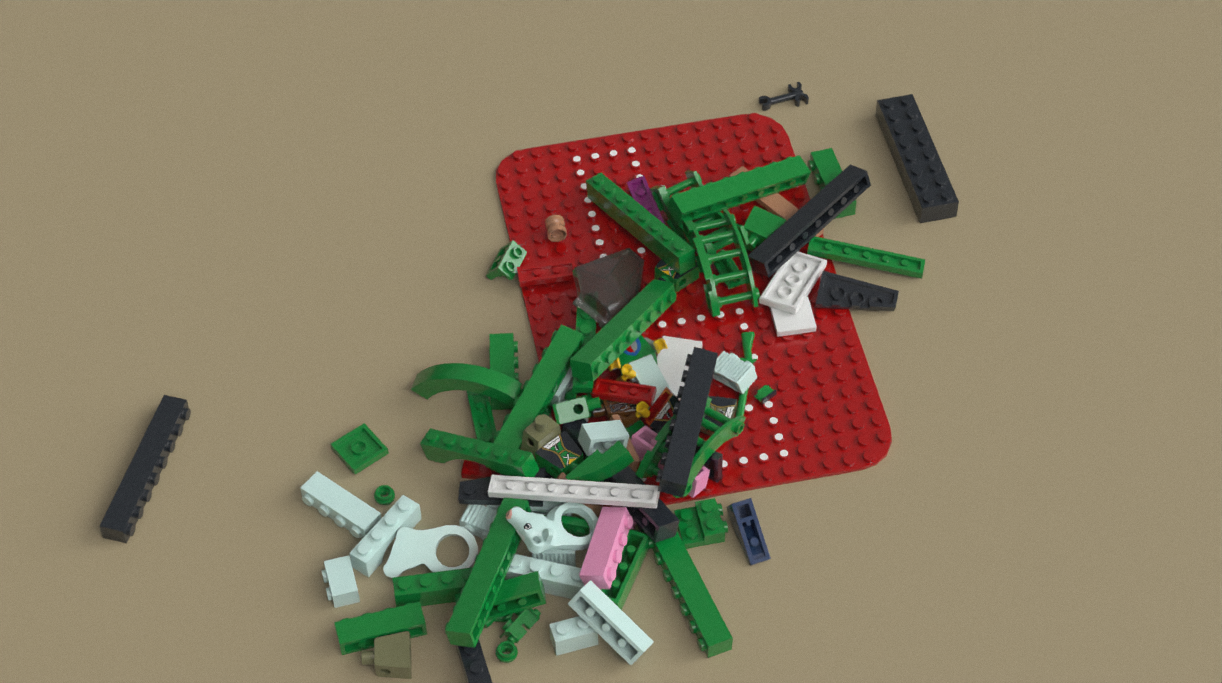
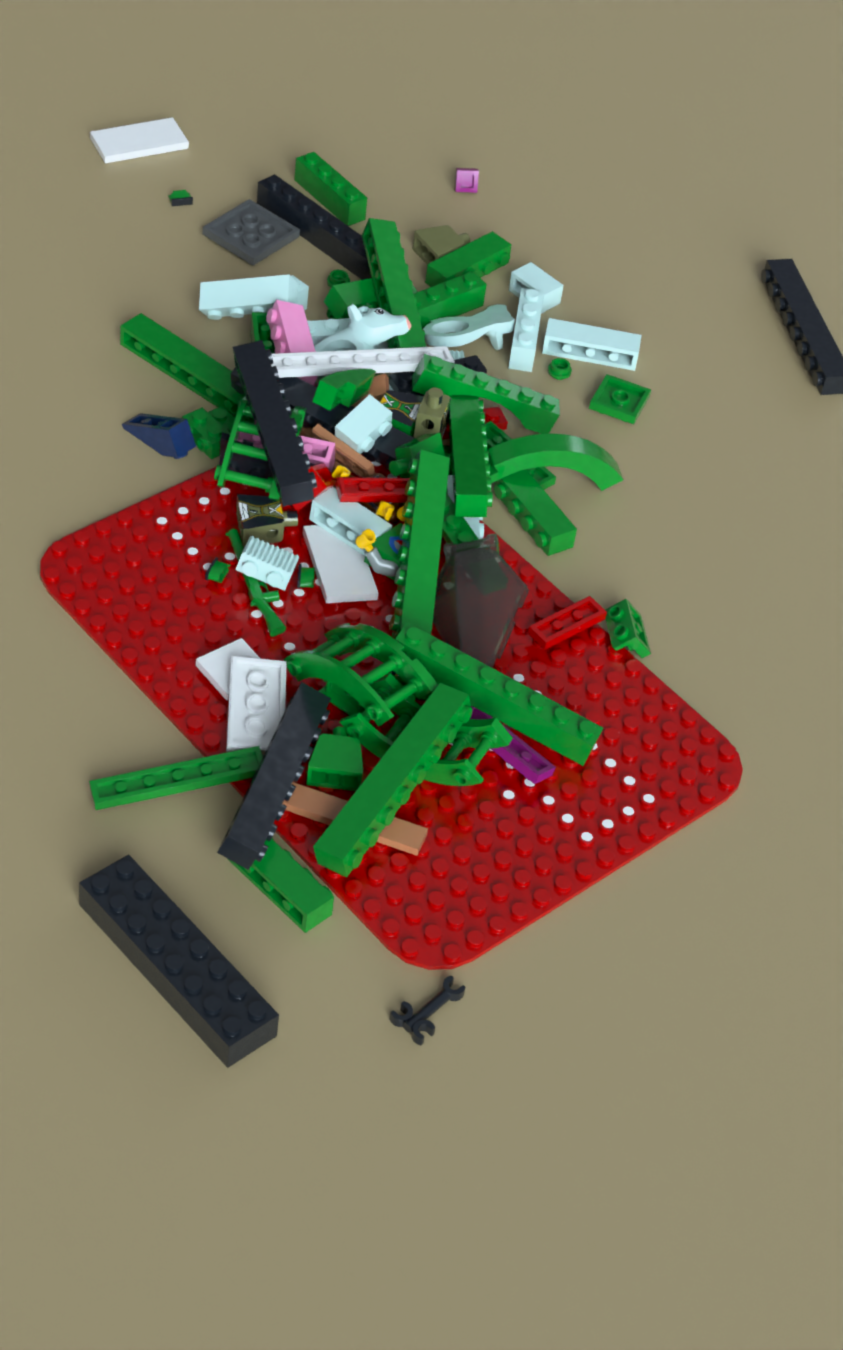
camera: 145 degrees right, 5 degrees down
(555, 227) = (598, 677): nougat wheel -> none
(848, 293) = (183, 716): black wing -> none

